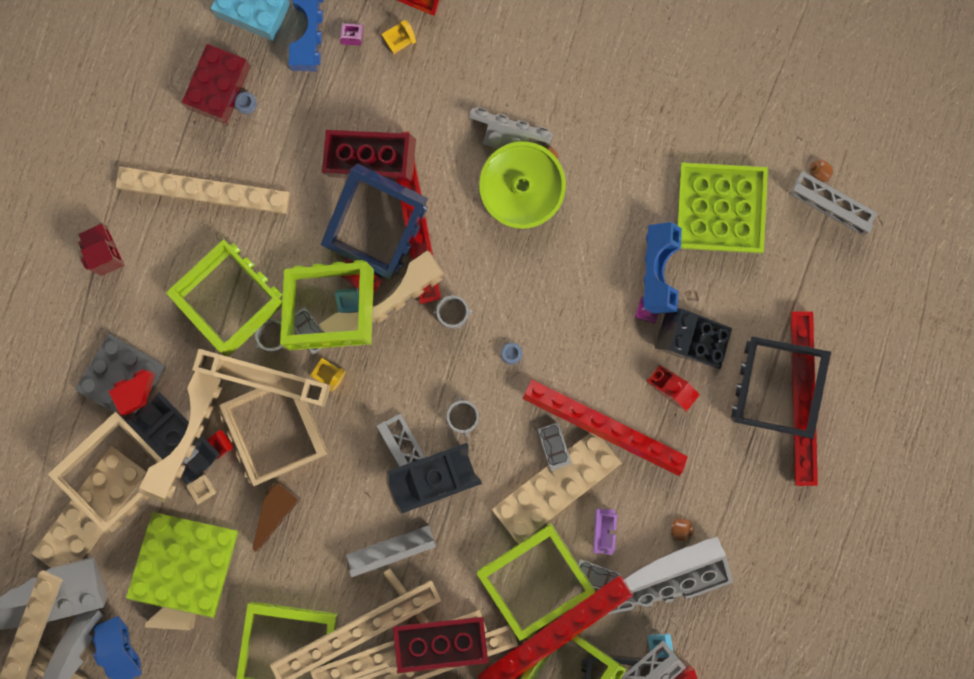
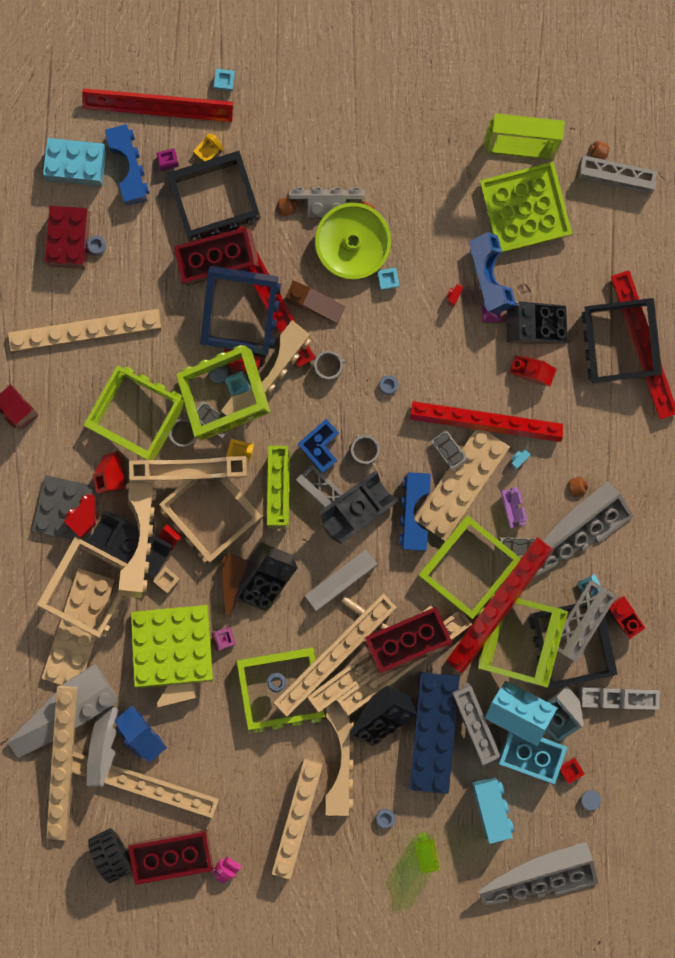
camera: 15 degrees left, 0 degrees up
(177, 354) = (109, 474): none -> red slope
(242, 573) = (223, 638): none -> magenta tile
(283, 649) = (271, 678): none -> sand blue plate
(309, 521) = (265, 576): none -> black slope
(331, 284) = (218, 375): none -> sand blue tile
(351, 430) = (278, 487): none -> lime window
(388, 55) = (204, 168): none -> black window
(409, 396) = (315, 446): none -> blue brick
(459, 238) = (314, 302): none -> reddish brown slope
(464, 125) = (287, 206): none -> dark orange piece
(486, 529) = (414, 536): none -> blue arch
(548, 238) = (388, 279): none -> medium azure plate
(613, 278) = (454, 294): none -> red plate
(628, 479) = (519, 458): none -> medium azure plate
(747, 119) = (528, 127): none -> lime window

